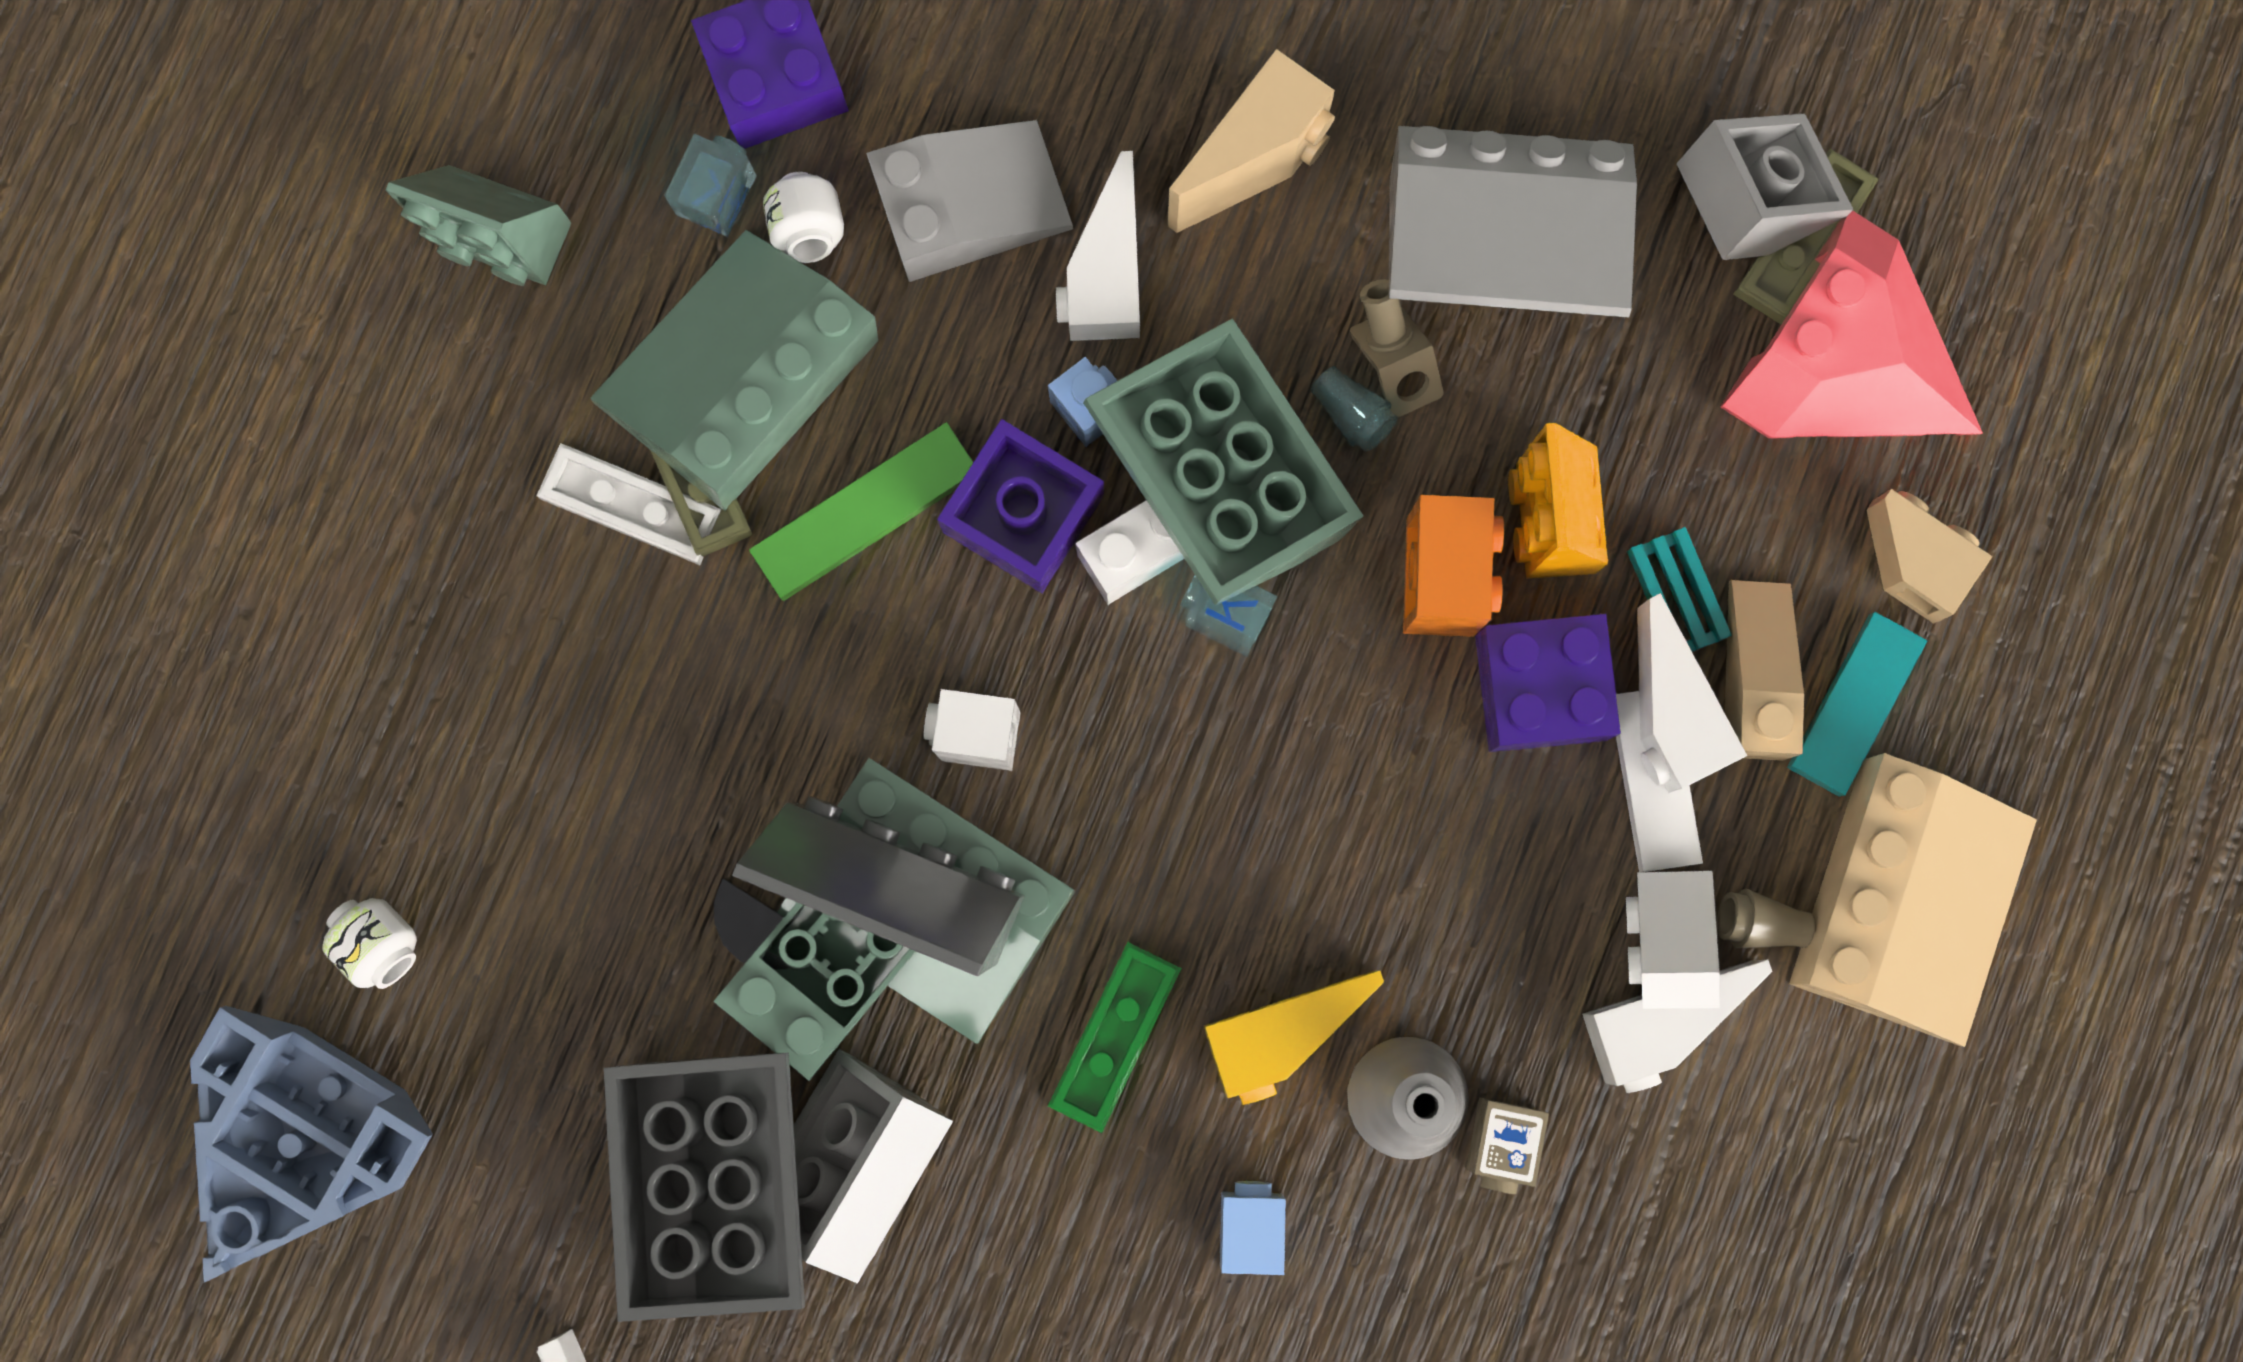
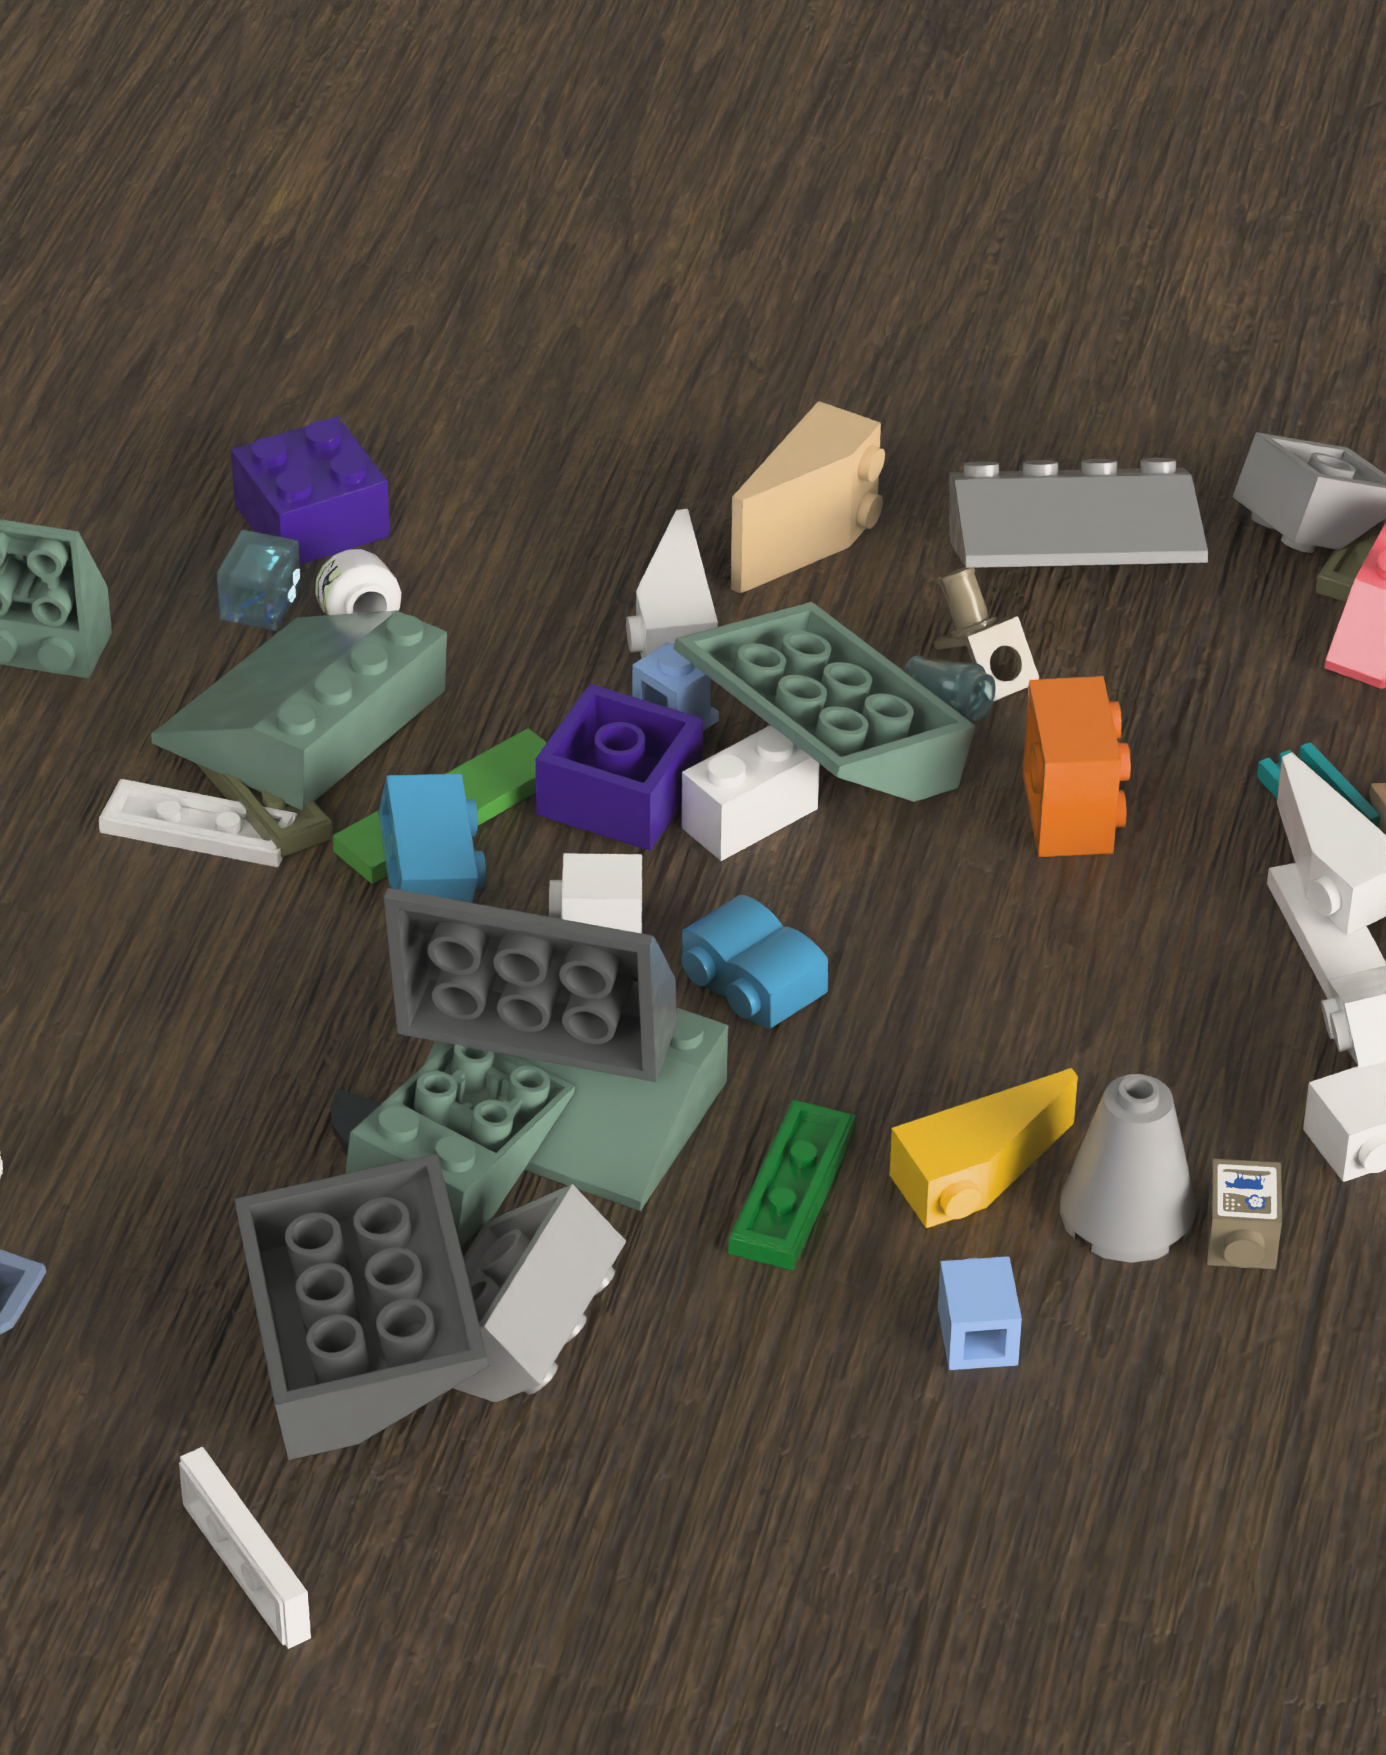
camera: 10 degrees left, 40 degrees down
(833, 594) = (429, 836): none -> dark azure brick
(968, 195) = (516, 571): light grey slope -> none
(1115, 768) = (754, 961): none -> dark azure brick
(1231, 623) = (850, 835): clear light blue brick -> none
(1547, 683) = (1196, 857): dark purple brick -> none
(1559, 506) = (1172, 713): light orange slope -> none

